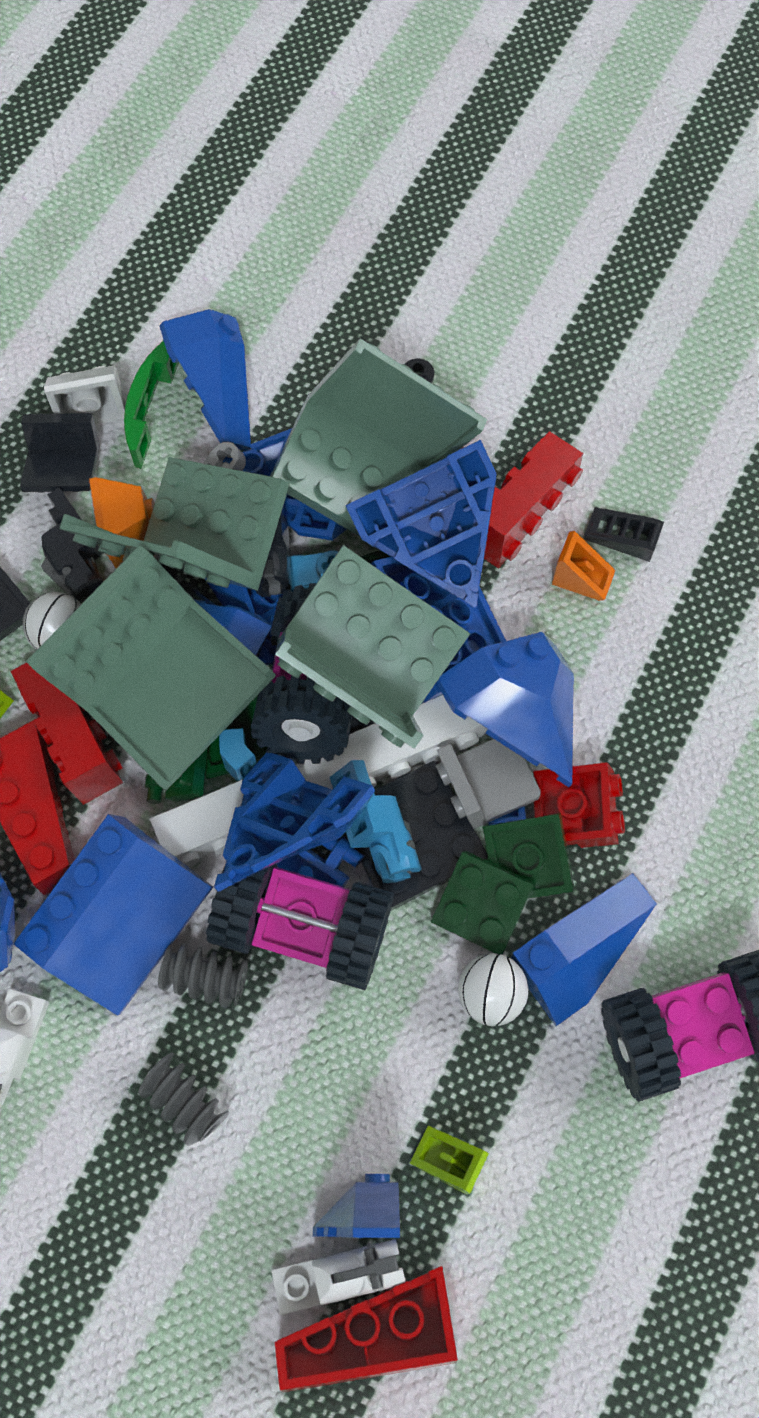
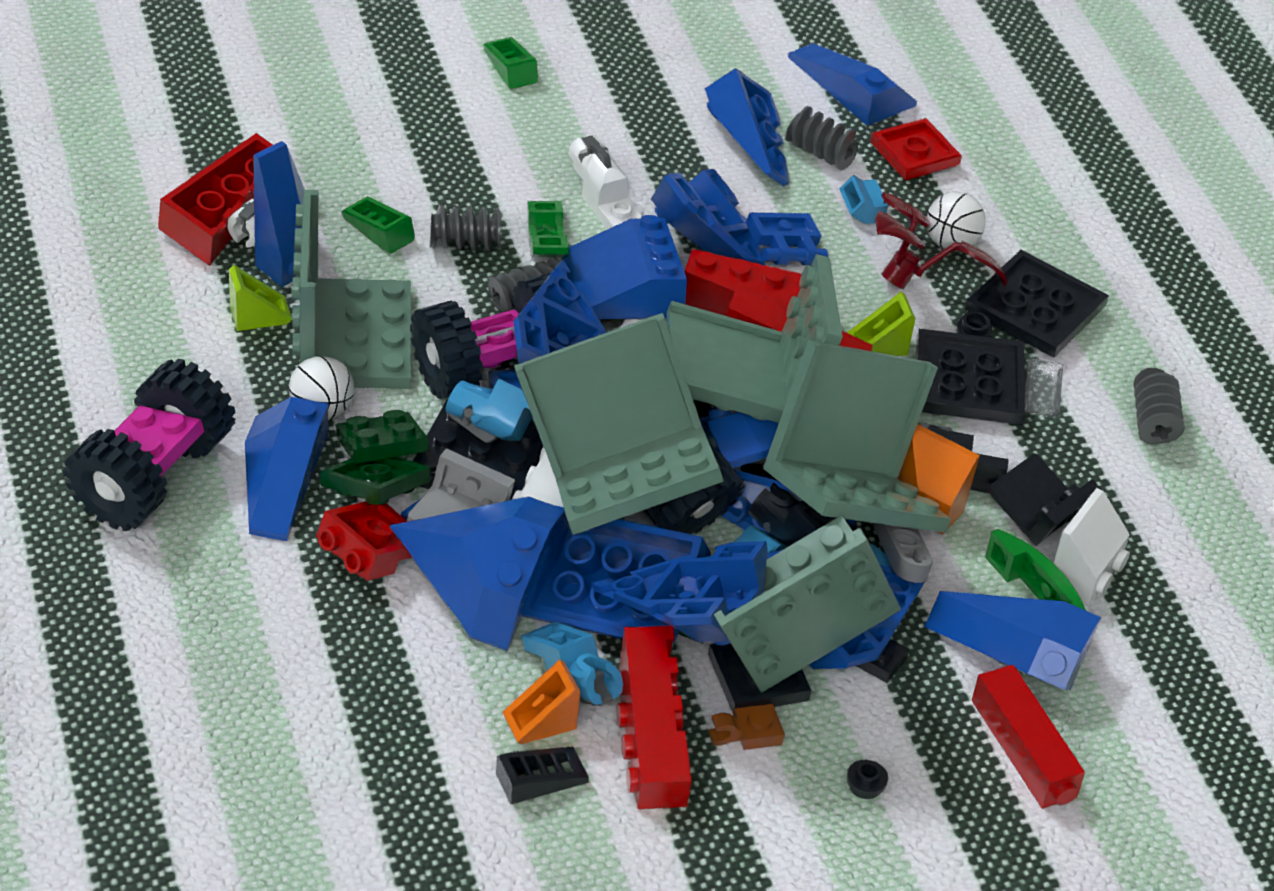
camera: 130 degrees right, 25 degrees down
(120, 1031) = (546, 230): none -> green slope
(235, 1231) = (383, 225): none -> green slope
(288, 320) = (1028, 736): none -> red brick
(391, 1061) = (349, 319): none -> sand green bracket
(534, 580) = (594, 676): none -> dark azure plate

